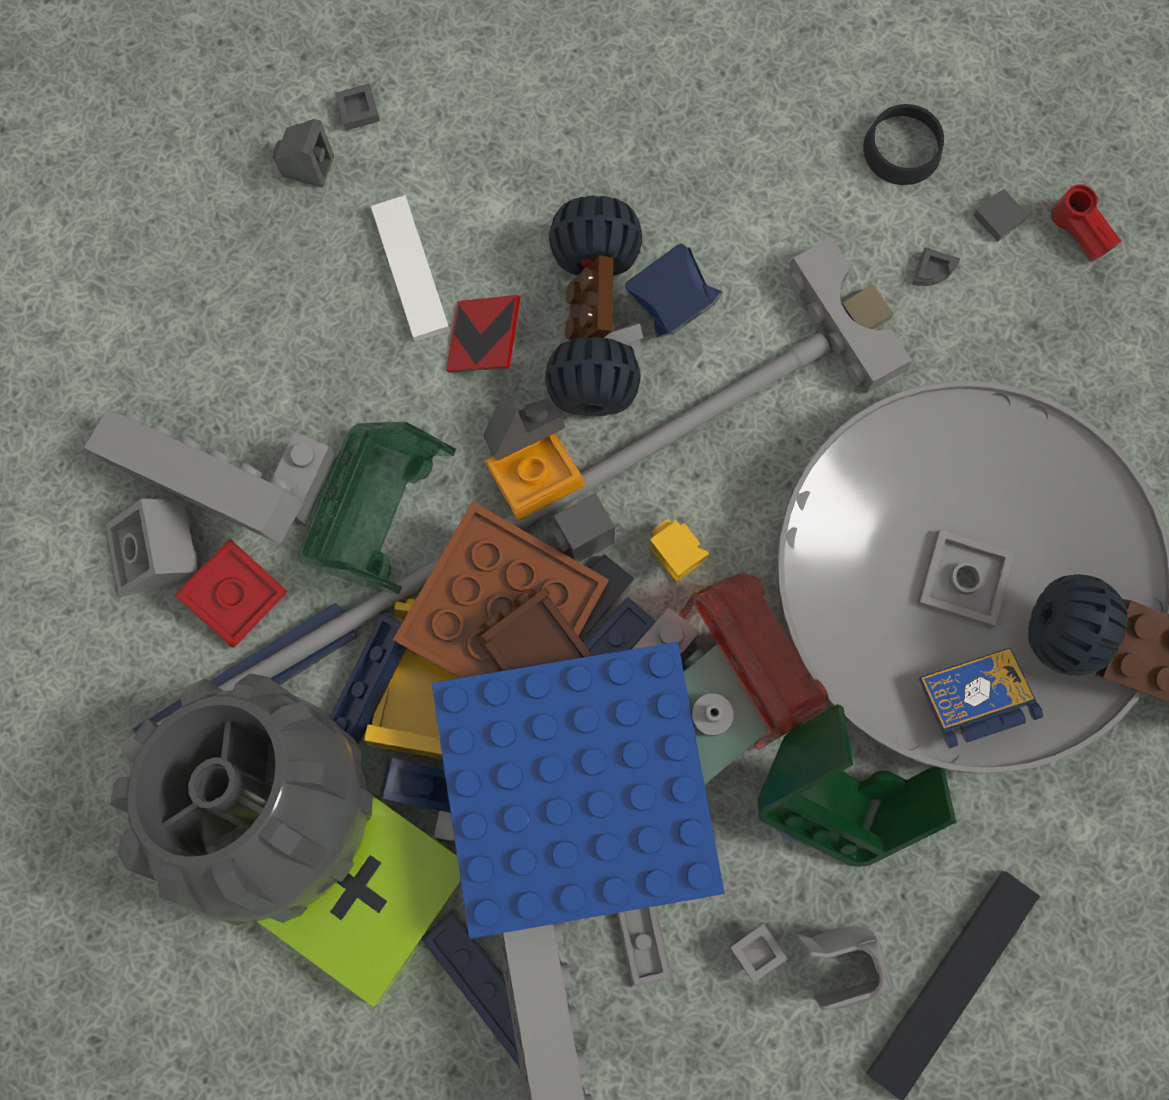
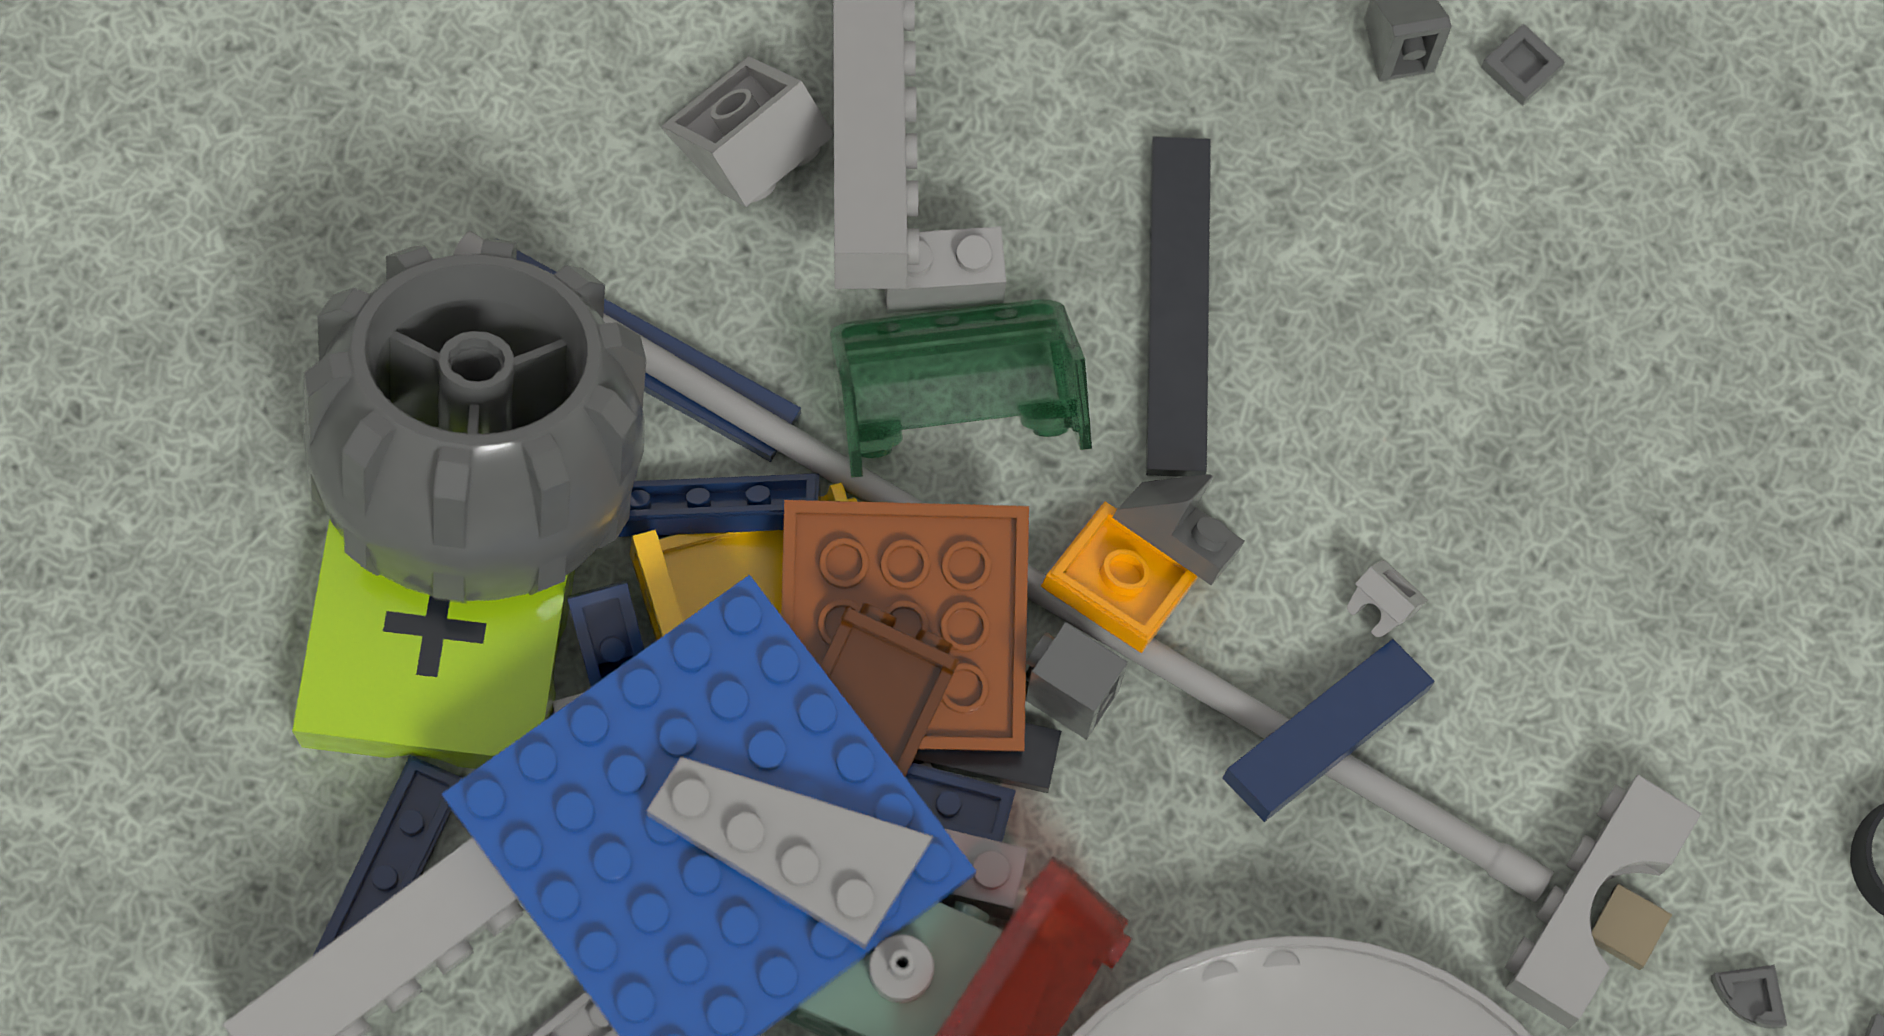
camera: 55 degrees right, 5 degrees down
(231, 593) = (741, 265): red tile -> none
(392, 362) = (1178, 307): none -> black tile
(410, 268) = (1326, 259): white tile -> none
(483, 334) = (1284, 405): red piece -> none
(594, 242) = (1497, 483): black plate -> none
(621, 734) = (801, 849): none -> light grey wing
(673, 290) = (1491, 631): dark blue piece -> none
(676, 549) = (1121, 826): yellow window -> none
(683, 408) = (1328, 730): none -> dark blue tile

